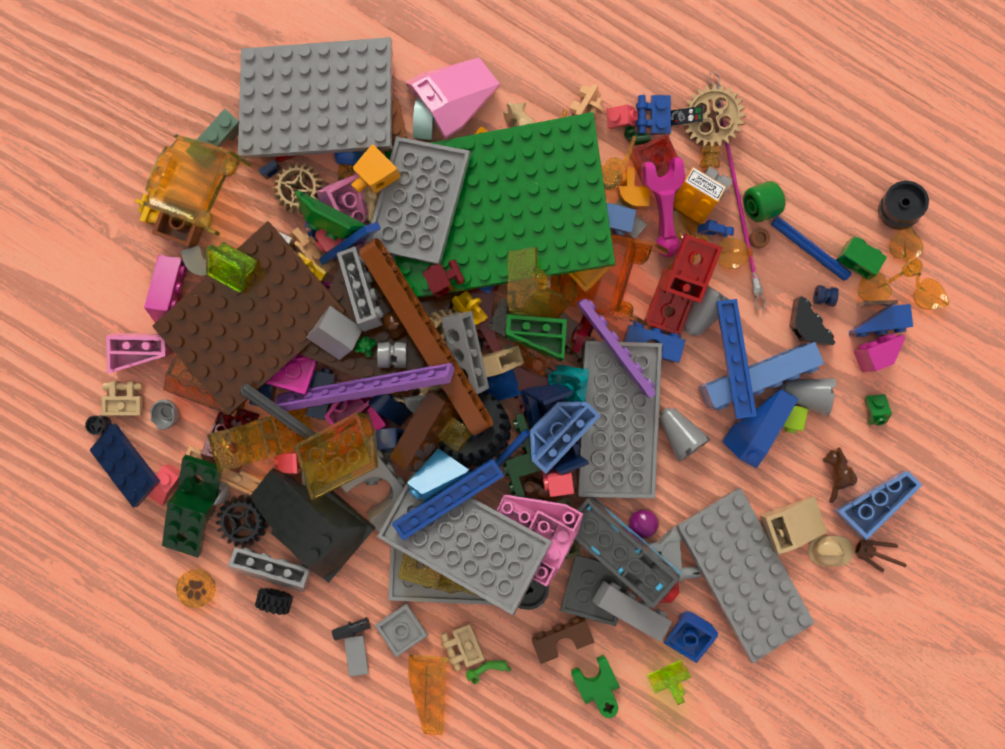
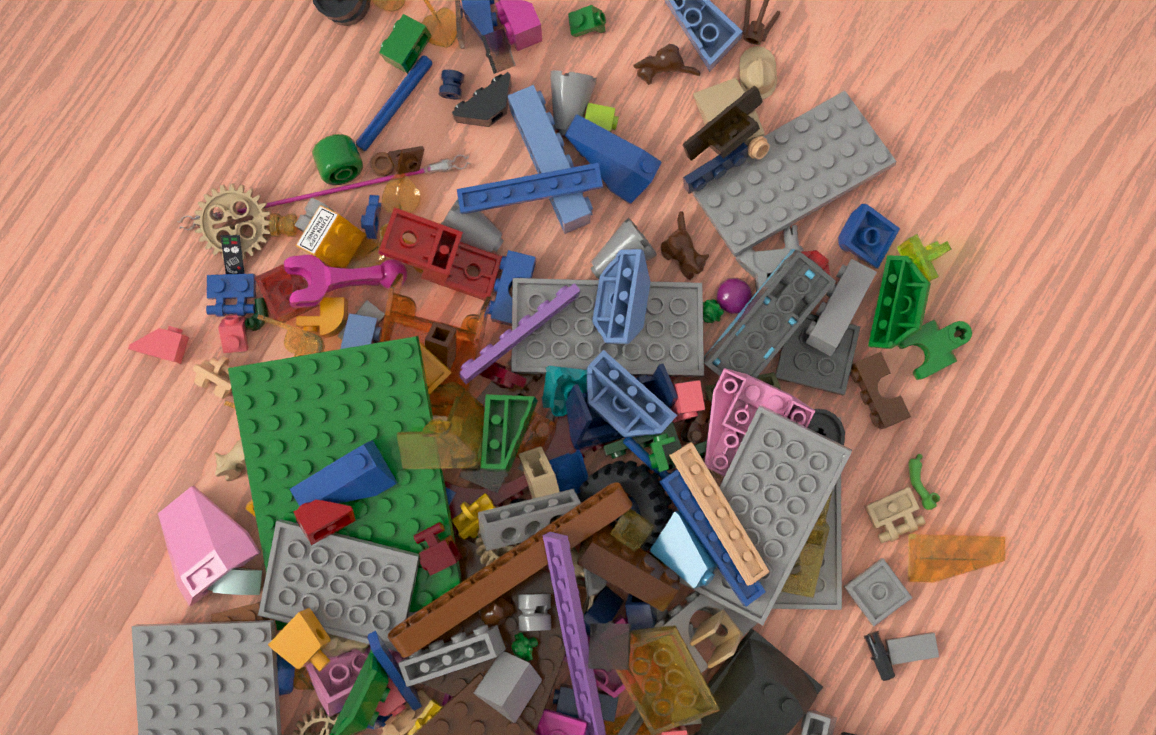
camera: 90 degrees left, 5 degrees down
(363, 414) = (609, 646): none -> clear smoke piece
(363, 506) = (726, 644): none -> tan piece
(465, 505) = (719, 514): none -> light nougat tile
(470, 187) = (323, 518): none -> red slope
(502, 211) = (350, 478): none -> blue wedge
(513, 457) = (658, 458): none -> green bracket
(610, 284) = (442, 342): none -> reddish brown brick
(614, 60) = (162, 344): none -> coral slope
(631, 505) = (711, 311): none -> green plant
(634, 659) = (899, 303): none -> green wedge
(643, 432) = (622, 297): none -> medium blue wedge
(684, 481) = (680, 247): none -> reddish brown animal
(750, 513) = (714, 169): none -> dark blue plate
(763, 260) = (409, 159): none -> reddish brown bracket
(766, 548) = (758, 147): none -> light nougat plate
(783, 524) = (728, 128): none -> dark brown bracket
(853, 335) = (498, 50): none -> clear smoke piece

